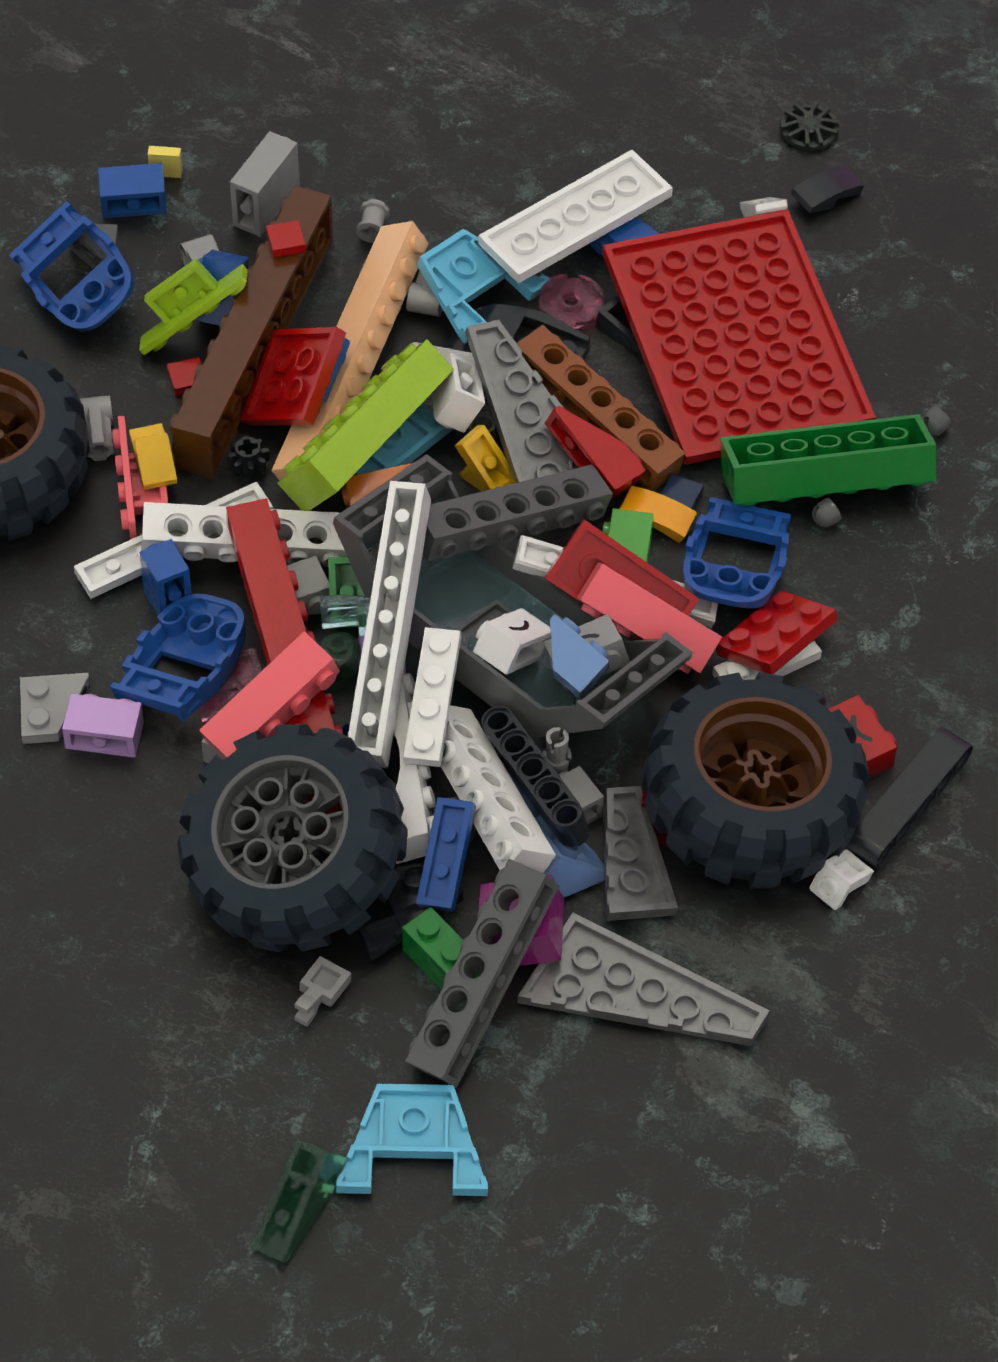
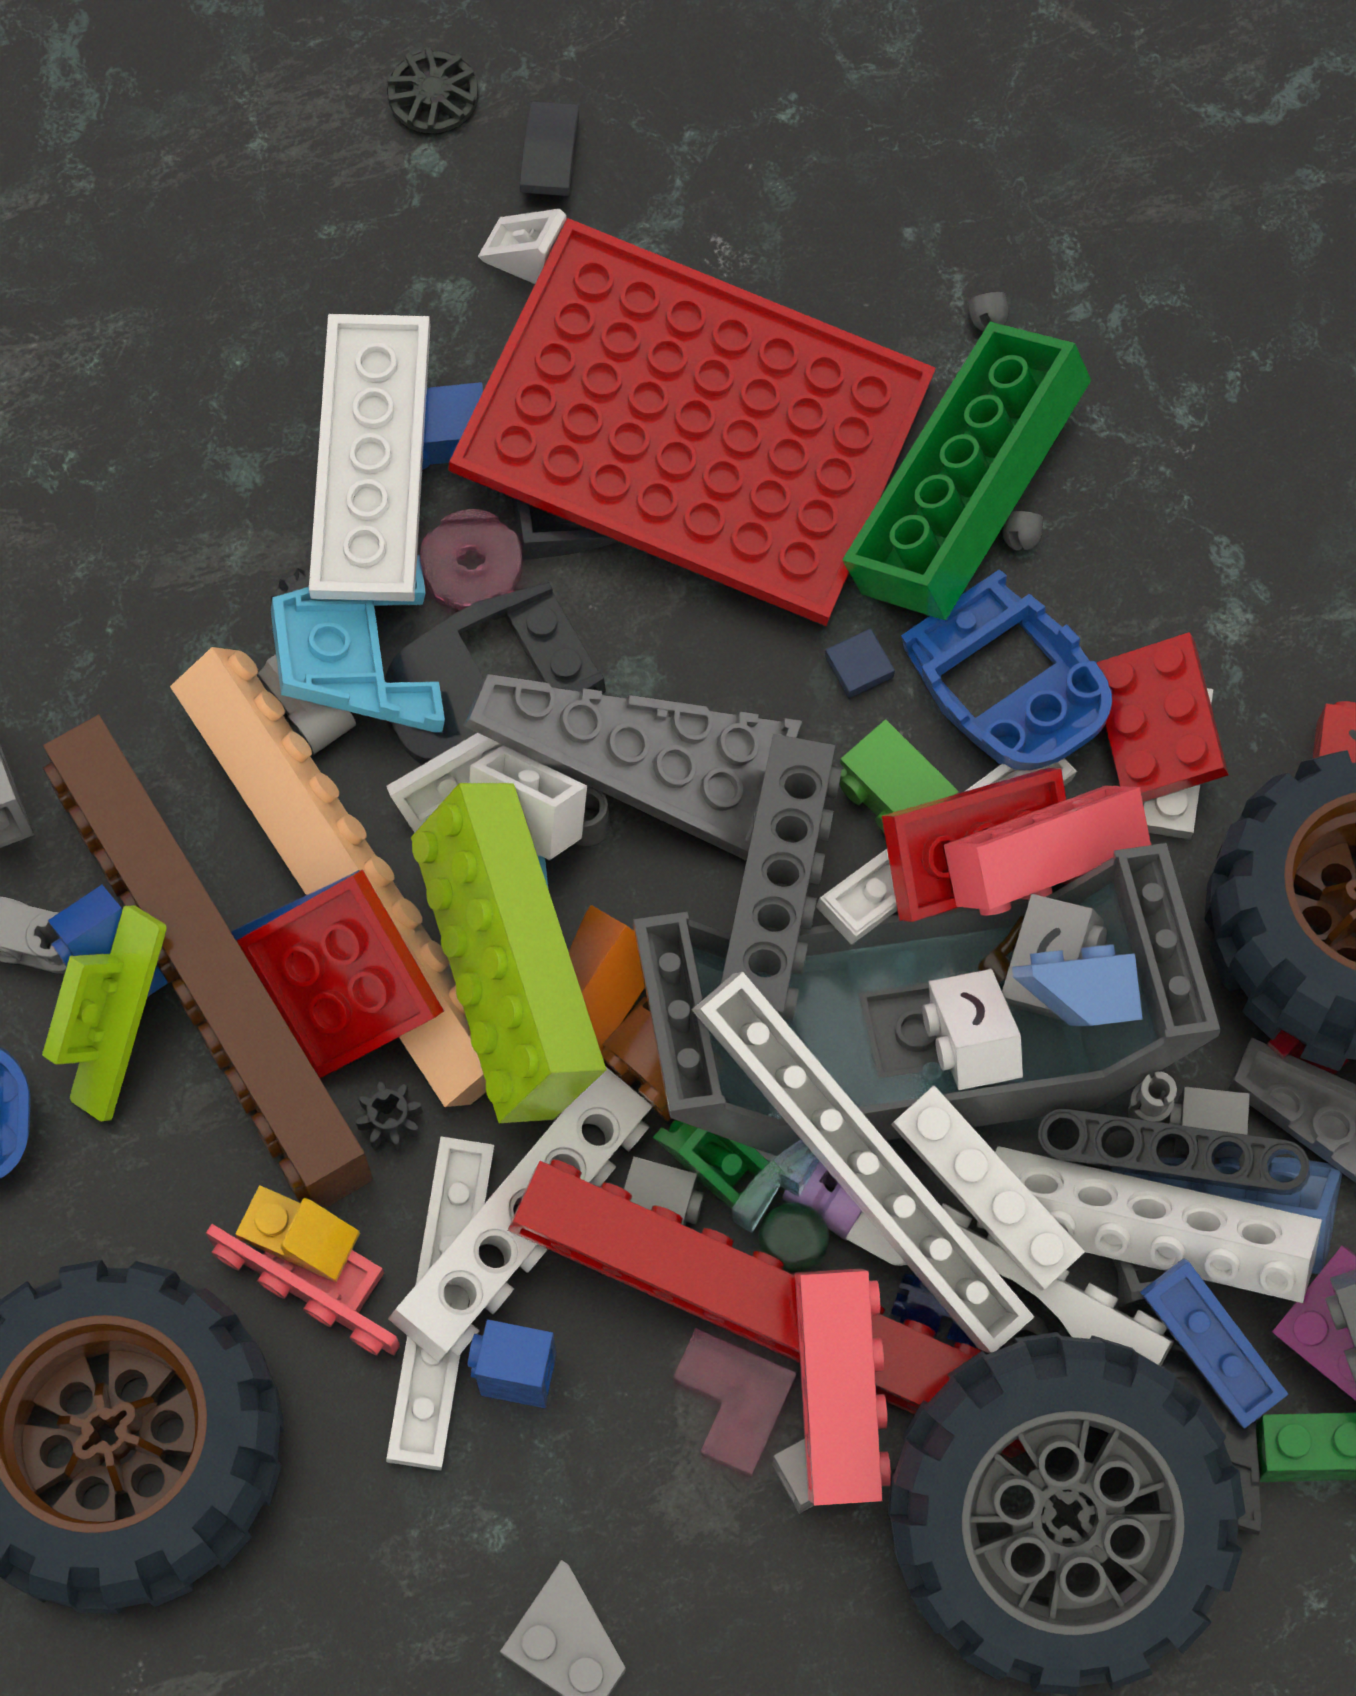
camera: 50 degrees left, 15 degrees up
(99, 421) = (167, 1247): light grey piece -> none
(103, 725) = (660, 1600): lavender brick -> none
(182, 374) = (188, 1092): red tile -> none
(191, 630) = (624, 1377): blue slope -> none
(286, 238) = (128, 822): red tile -> none
(321, 984) = (1252, 1618): light grey plate -> none
(373, 217) = (140, 687): light grey bush -> none
(485, 462) = (640, 848): yellow slope -> none
(591, 445) = (752, 713): red slope -> none
(598, 403) = (699, 674): dark orange brick -> none
(669, 515) = (860, 709): light orange slope -> none

